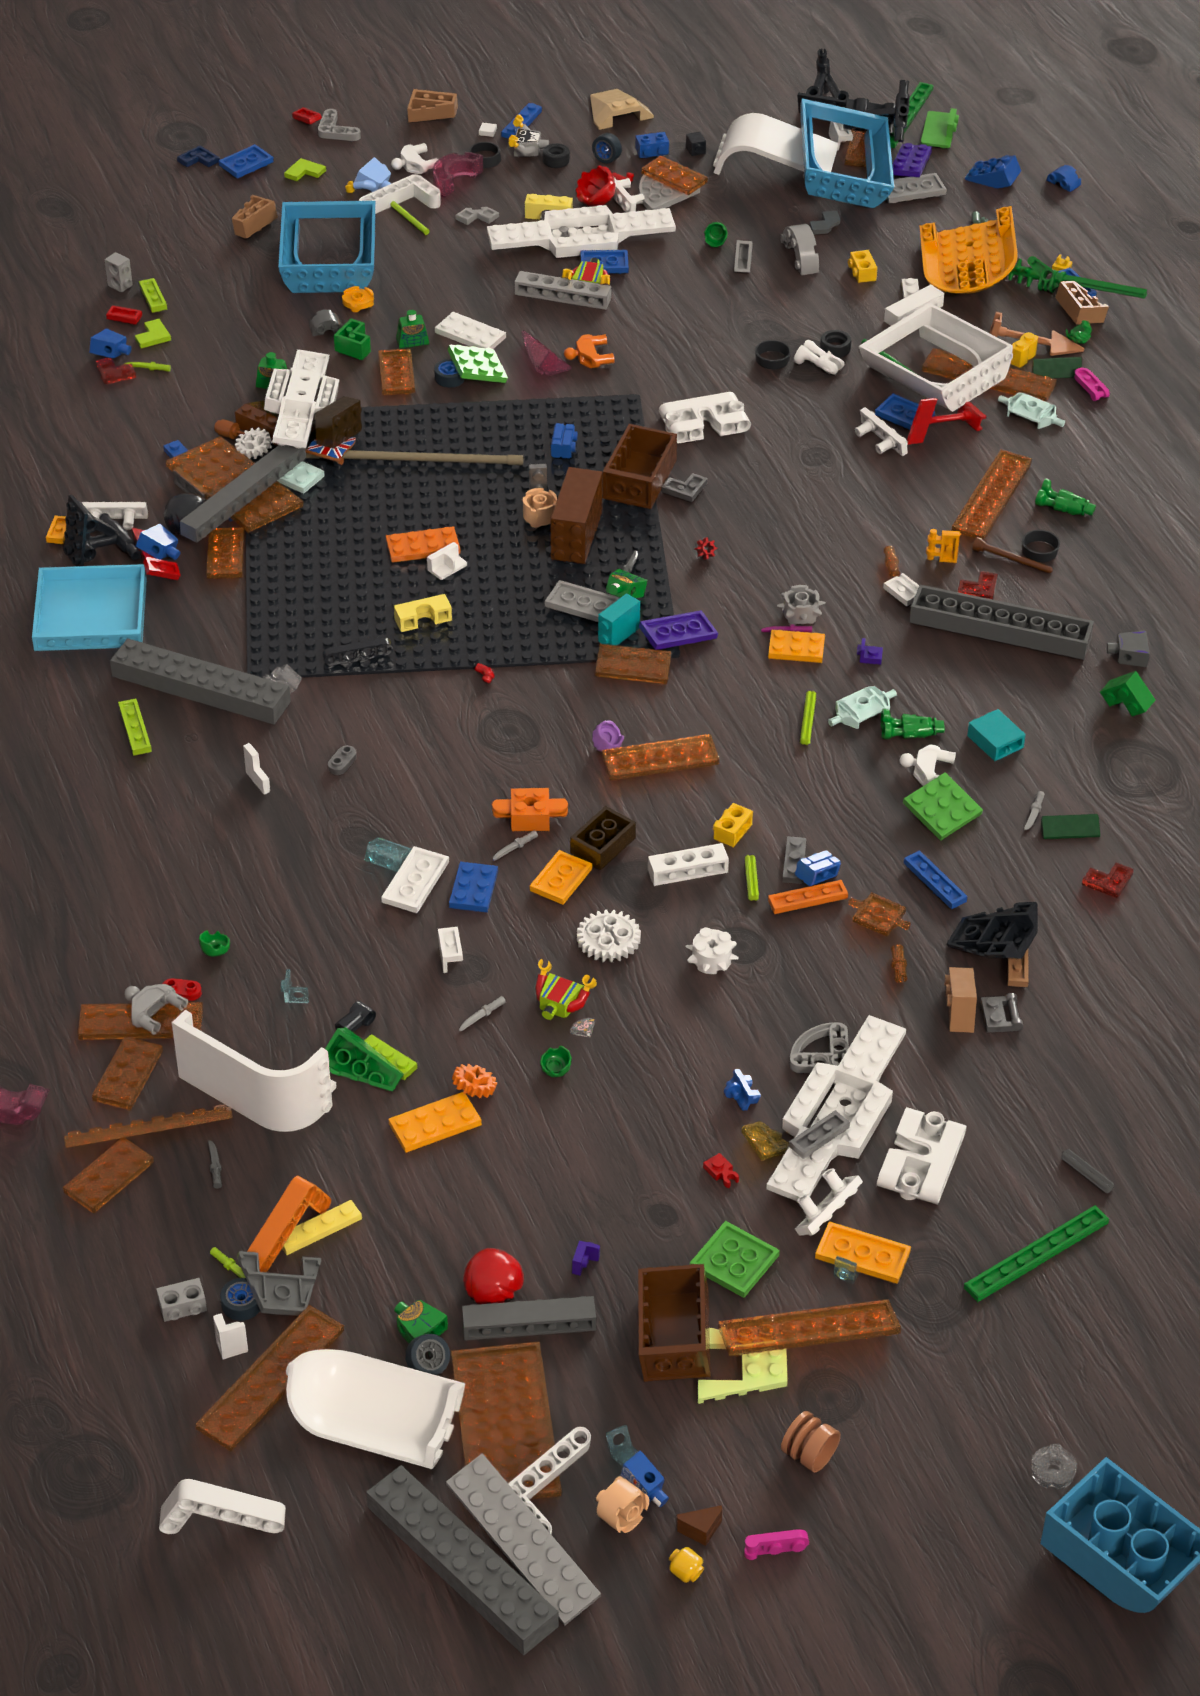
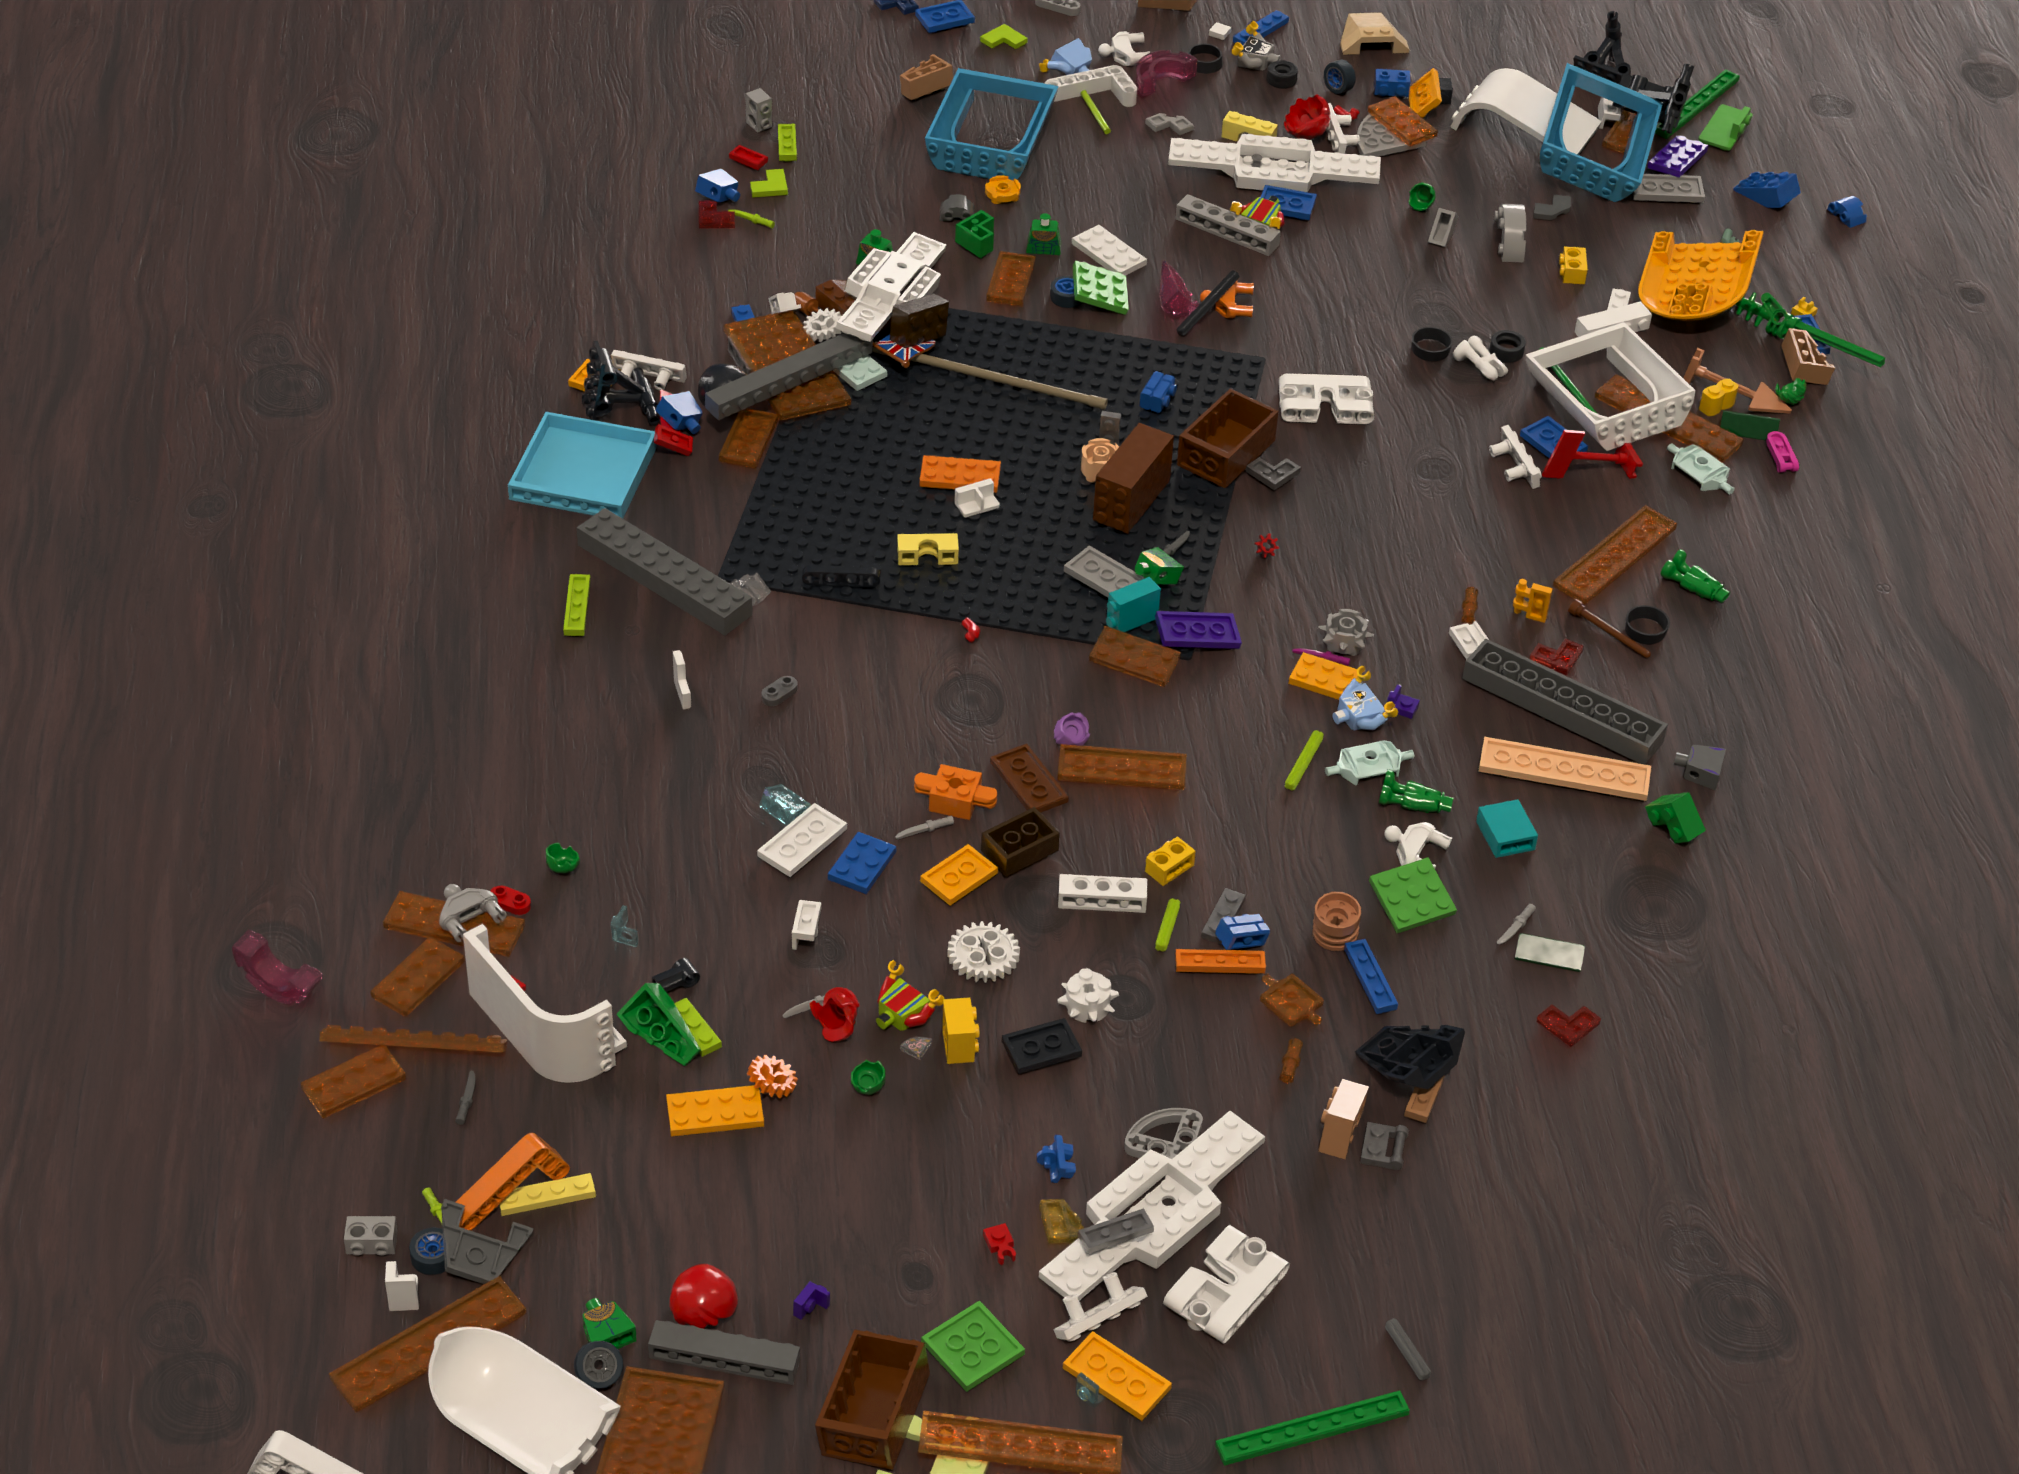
camera: 15 degrees right, 0 degrees up
(209, 432) = (783, 302): none -> white panel
(508, 1016) = (836, 1014): none -> red helmet
(574, 358) = (1207, 303): none -> black axle
(585, 785) = (1029, 779): none -> reddish brown tile
(618, 1004) = (960, 1030): none -> yellow brick
(684, 148) = (1425, 93): none -> light orange plate
(689, 1001) = (1041, 1045): none -> black plate
(838, 663) = (1361, 707): none -> light blue torso
(891, 841) = (1336, 920): none -> nougat wheel
(1022, 676) = (1565, 768): none -> light nougat plate

